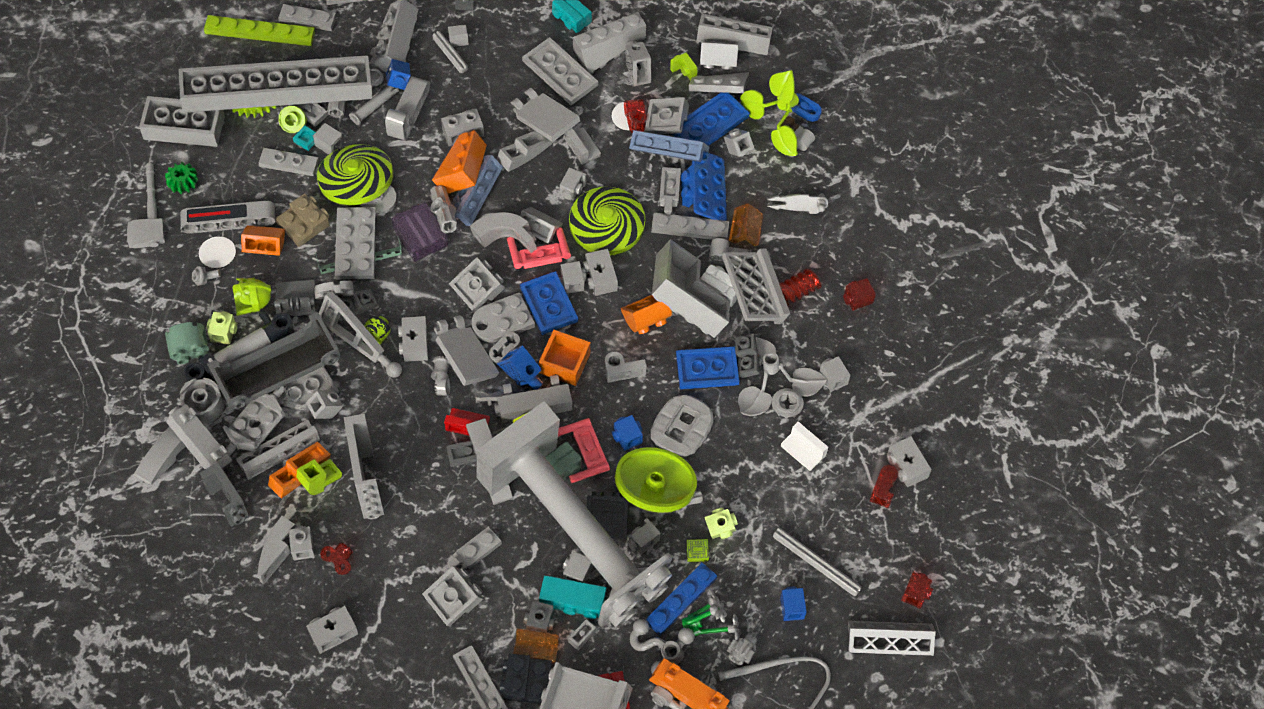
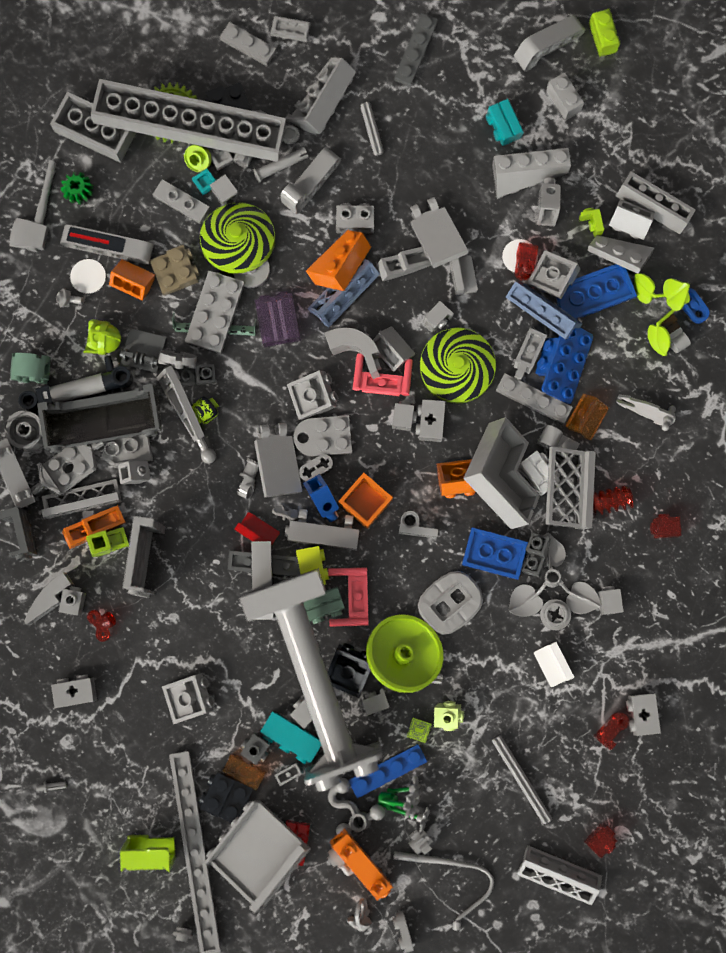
camera: 25 degrees right, 20 degrees up
(221, 327) = (66, 360): yellowish green brick -> none
(259, 30) = (198, 44): lime plate -> none
(398, 74) = (312, 142): blue brick -> none
(415, 329) = (243, 422): light grey brick -> none
(443, 209) = (306, 305): light grey piece -> none
(458, 35) = (385, 114): light grey piece -> none
(475, 549) = (222, 659): light grey hinge -> none
(548, 303) = (372, 435): blue plate -> none
(560, 71) = (470, 186): light grey plate -> none
(627, 432) = (397, 593): blue brick -> none
(738, 142) = (613, 326): light grey brick -> none
(793, 604) = (484, 813): blue brick -> none

